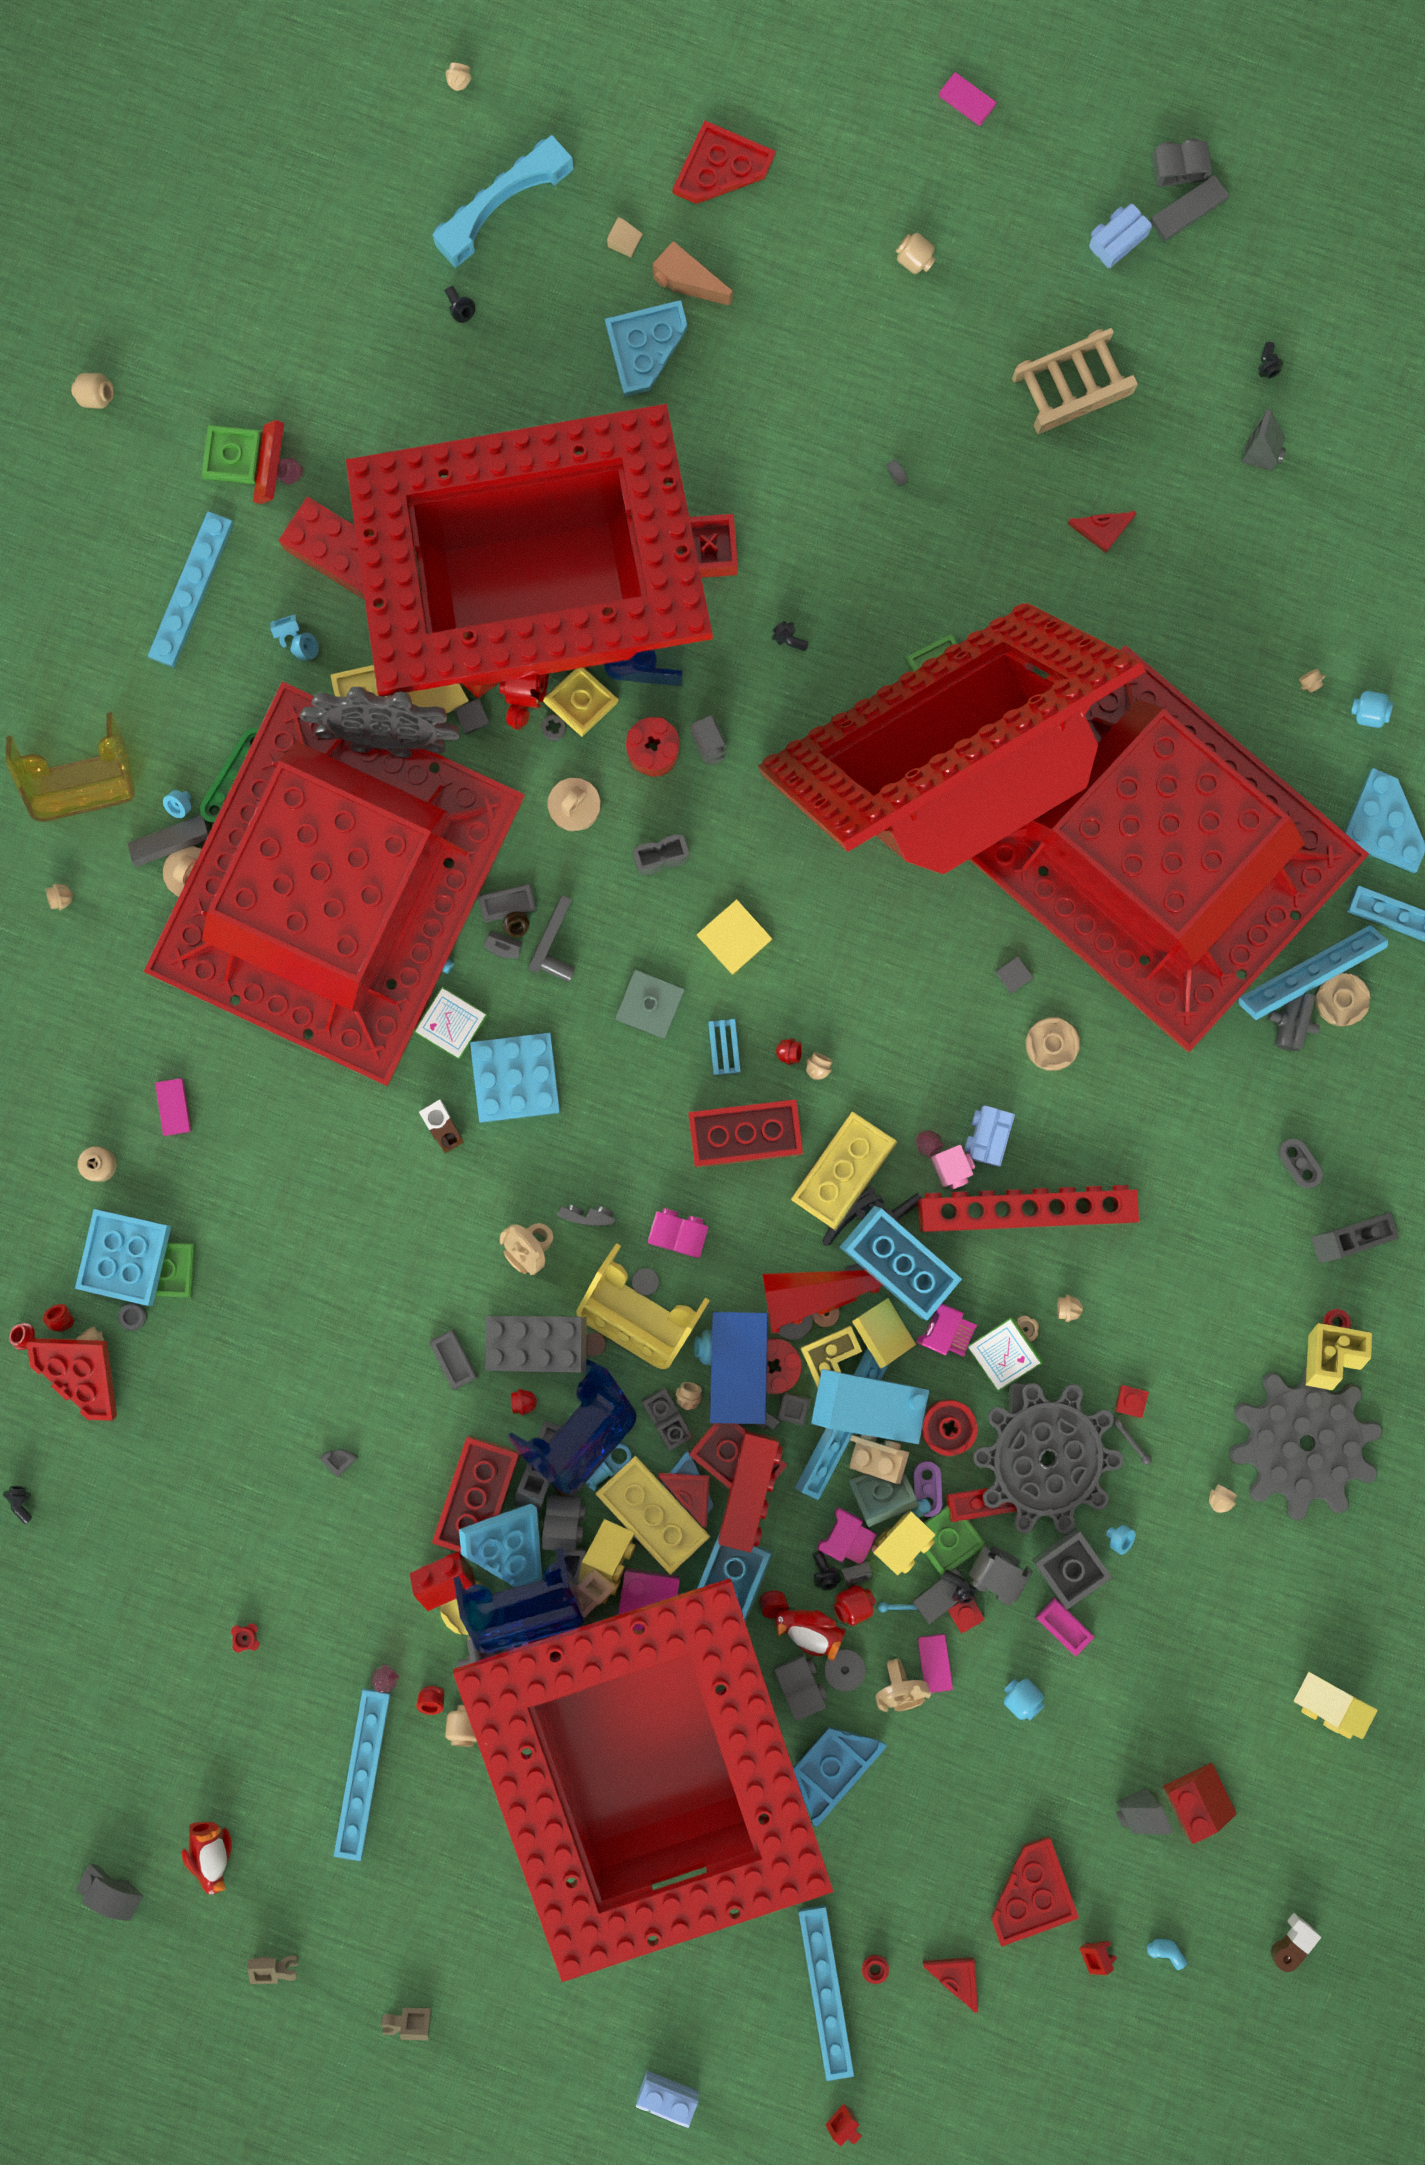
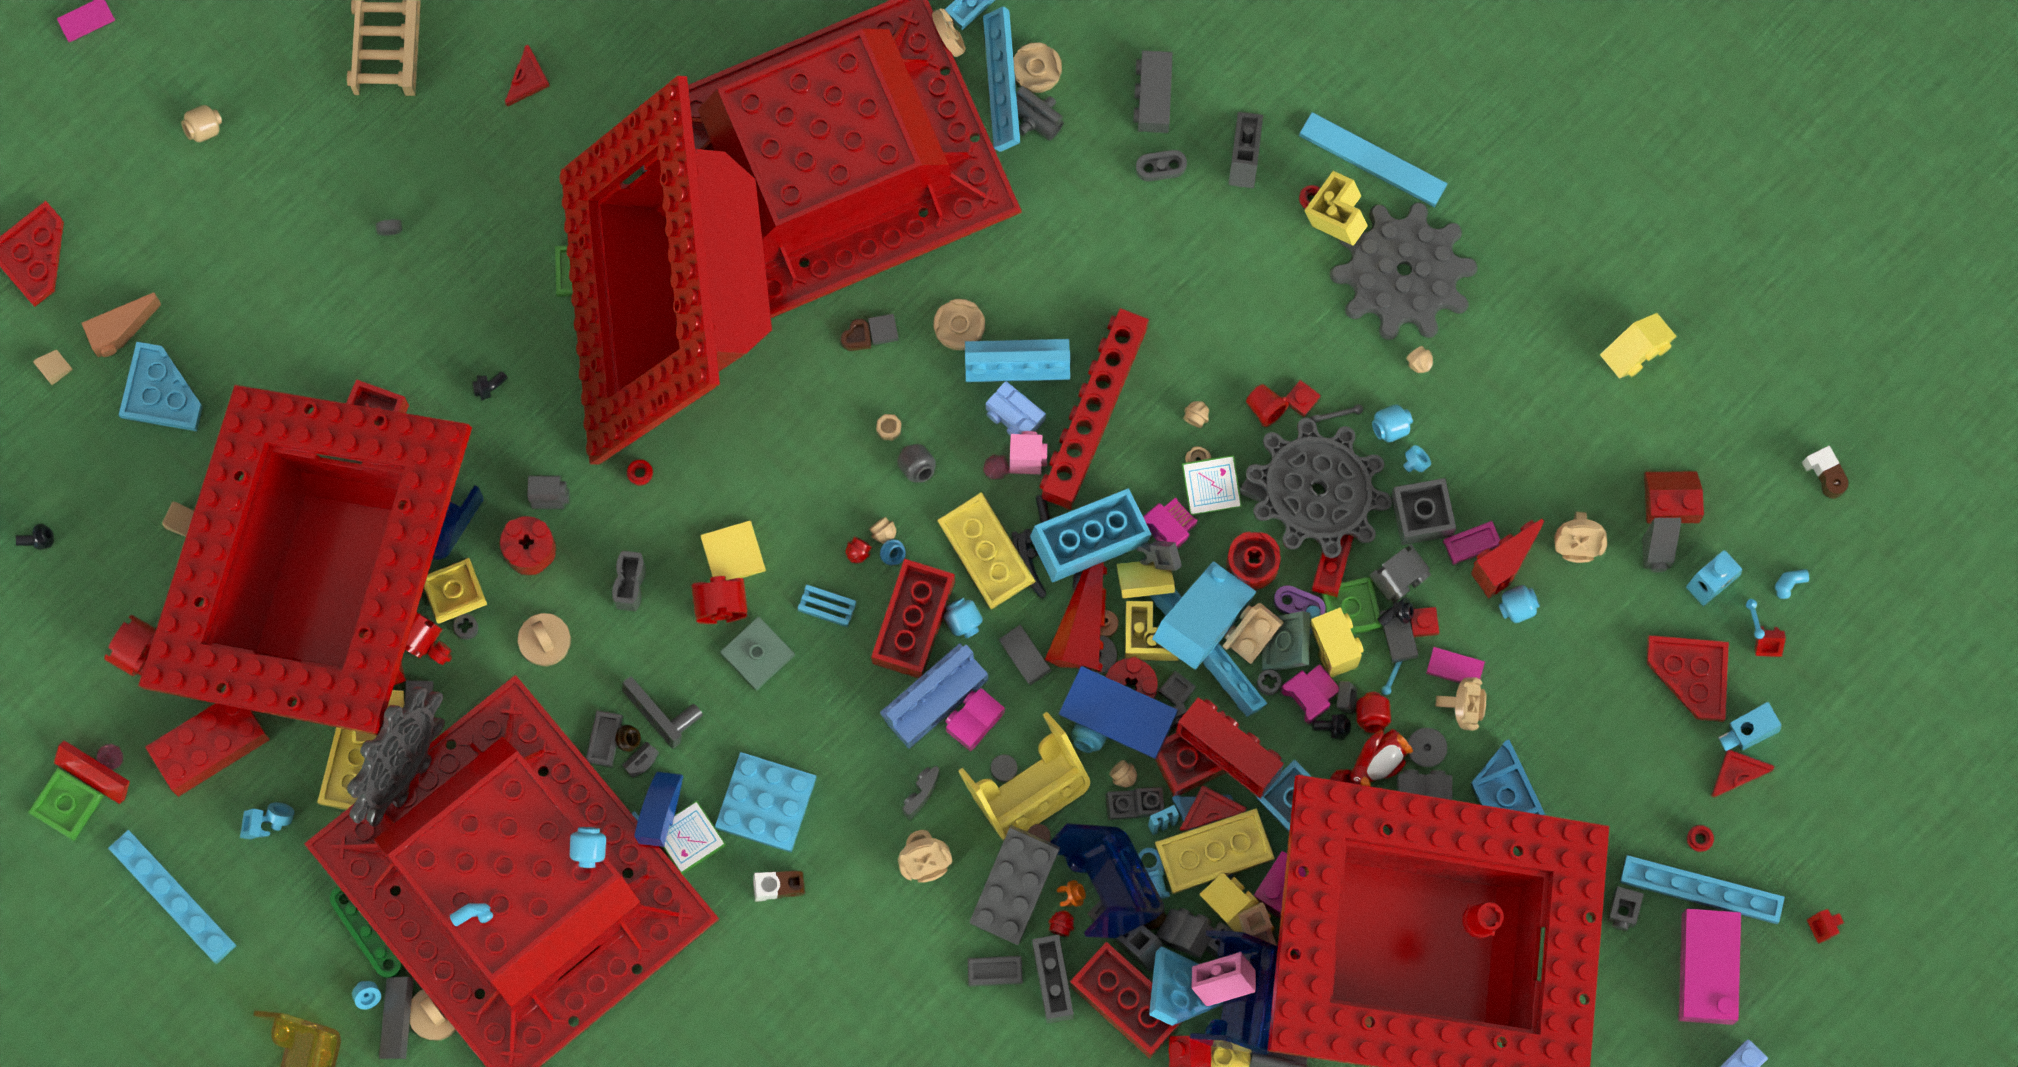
camera: 65 degrees left, 10 degrees down
(259, 860) = (470, 910): none -> medium azure arm
(367, 939) = (587, 846): none -> medium azure head
(394, 434) = (131, 646): none -> red brick
(461, 984) = (658, 809): none -> blue slope
(465, 1418) = (1052, 979): none -> dark grey brick
(526, 1582) = (1223, 979): none -> bright pink brick
(534, 417) = (178, 518): none -> tan slope
(557, 1401) = (1075, 892): none -> orange plate
(660, 1453) = (1167, 815): none -> medium azure tile
(677, 1817) = (1482, 919): none -> red piece
(680, 946) = (719, 600): none -> red brick
(682, 1186) = (934, 695): none -> medium blue brick
(753, 2032) = (1709, 966): none -> dark pink brick
(760, 1252) = (1025, 655): none -> dark grey slope
(769, 1178) = (963, 617): none -> medium azure head
(771, 807) = (639, 465): none -> red plate
(780, 1934) = (1631, 901): none -> dark grey brick
(801, 1084) = (897, 555): none -> dark azure plate
(848, 1492) = (1273, 675): none -> dark grey bush
(897, 1067) = (916, 463): none -> dark grey head
(913, 1339) = (1162, 553): none -> dark grey plate
(921, 1024) = (888, 427): none -> tan tile
(995, 953) = (857, 336): none -> reddish brown tile
(1010, 1987) = (1762, 723): none -> medium azure torso
(1040, 1115) = (1017, 360): none -> medium azure brick
(1055, 1672) = (1498, 568): none -> red slope
(1108, 1371) = (1266, 405): none -> red piece
(1115, 1732) = (1580, 539): none -> tan tile
(1128, 1923) = (1751, 604): none -> medium azure hinge
(1137, 1880) = (1716, 576): none -> medium azure torso
(1145, 1499) = (1392, 423): none -> medium azure head
(1333, 902) = (947, 32): none -> tan tile
(1371, 1122) = (1153, 91): none -> dark grey brick
(1403, 1364) = (1373, 159): none -> medium azure tile

